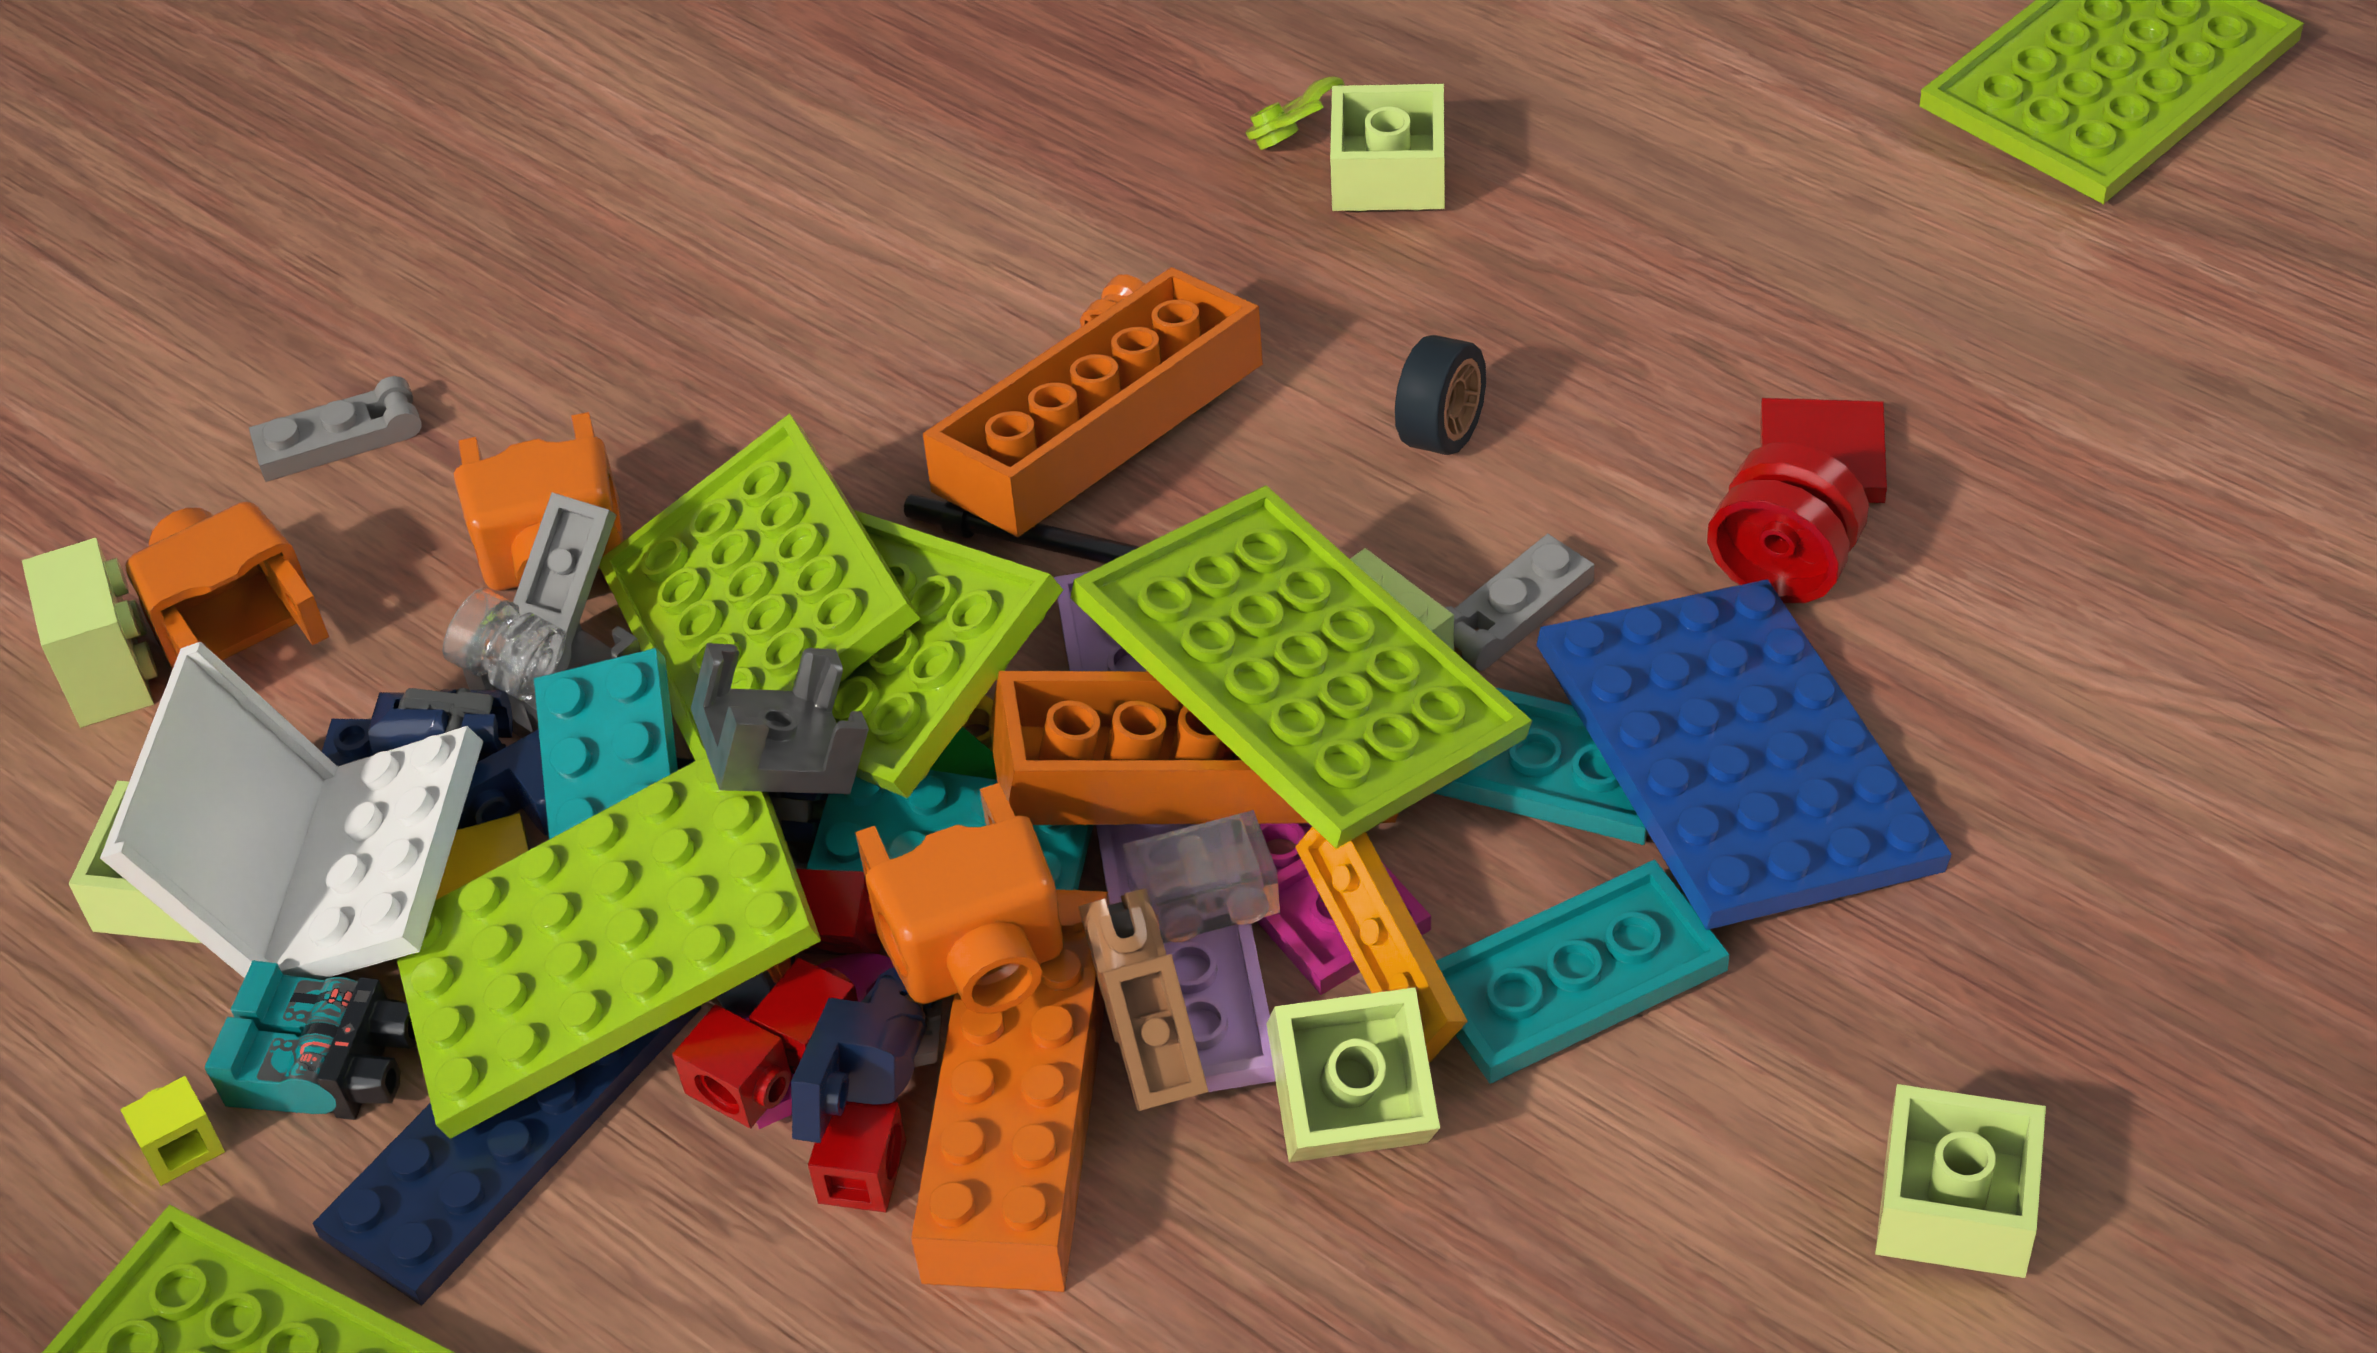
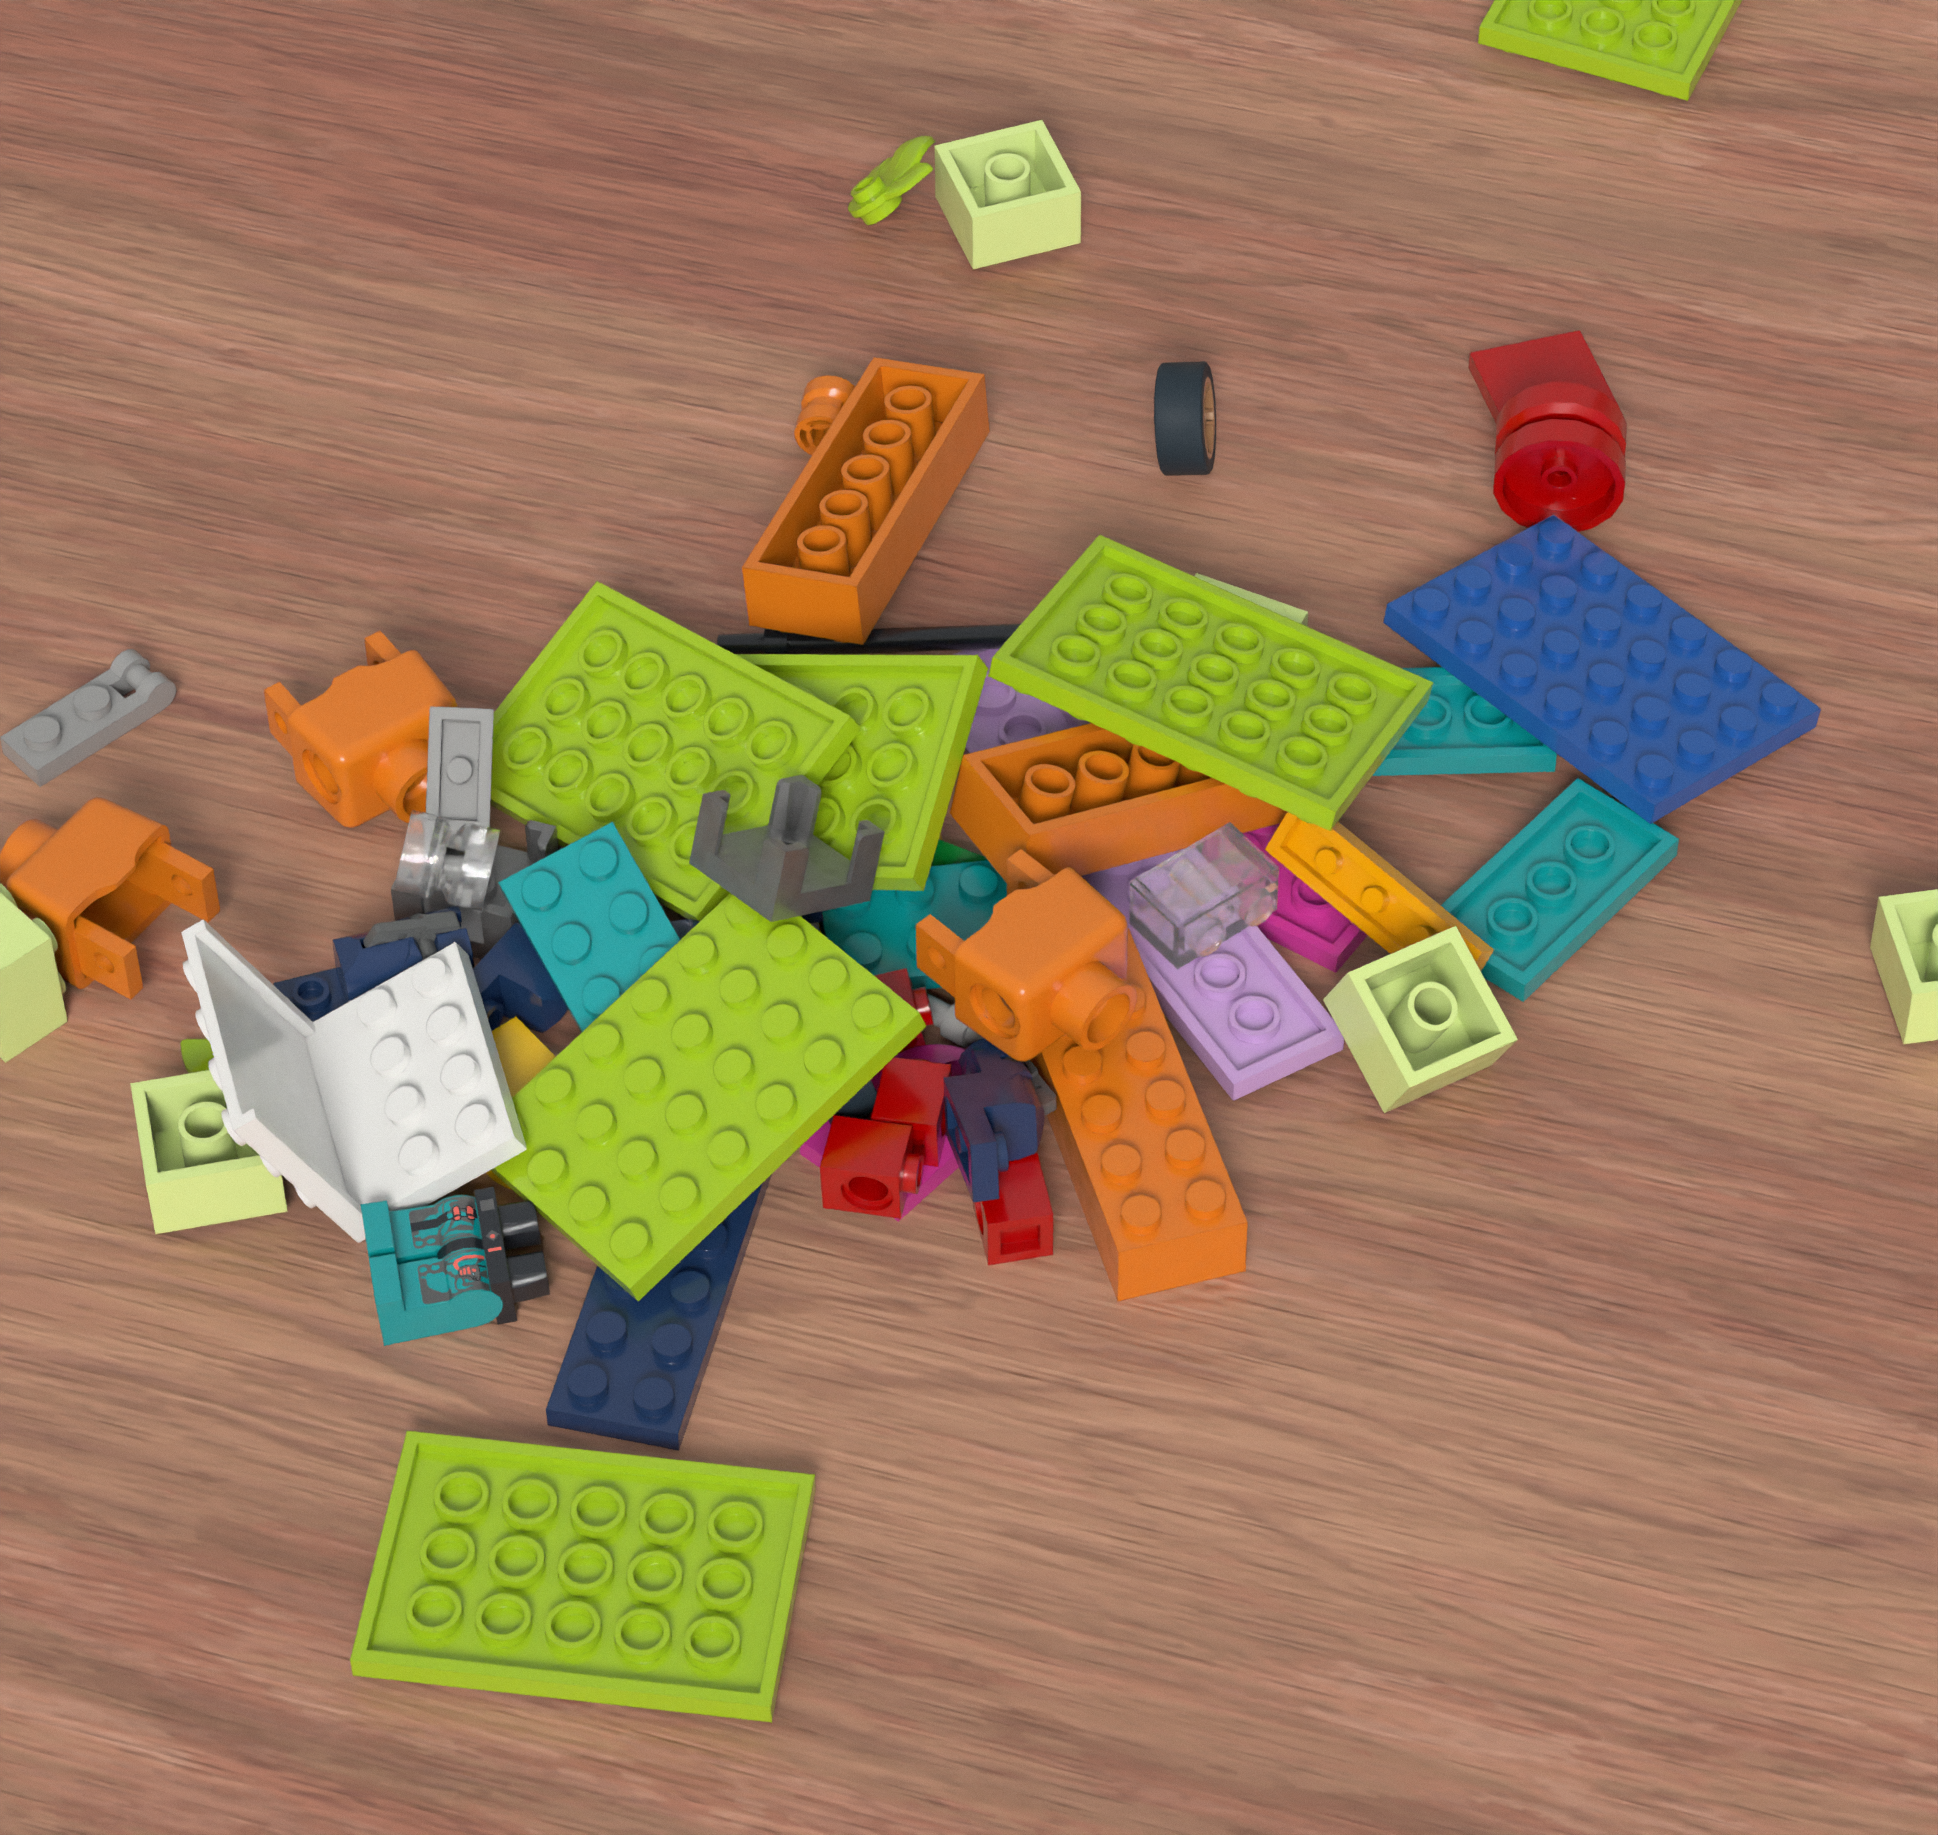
camera: 25 degrees left, 0 degrees up
(172, 1130) = (363, 1371): neon yellow plate -> none
(1143, 1000) = (1215, 1004): medium nougat plate -> none
(1518, 600) = (1343, 580): light grey plate -> none

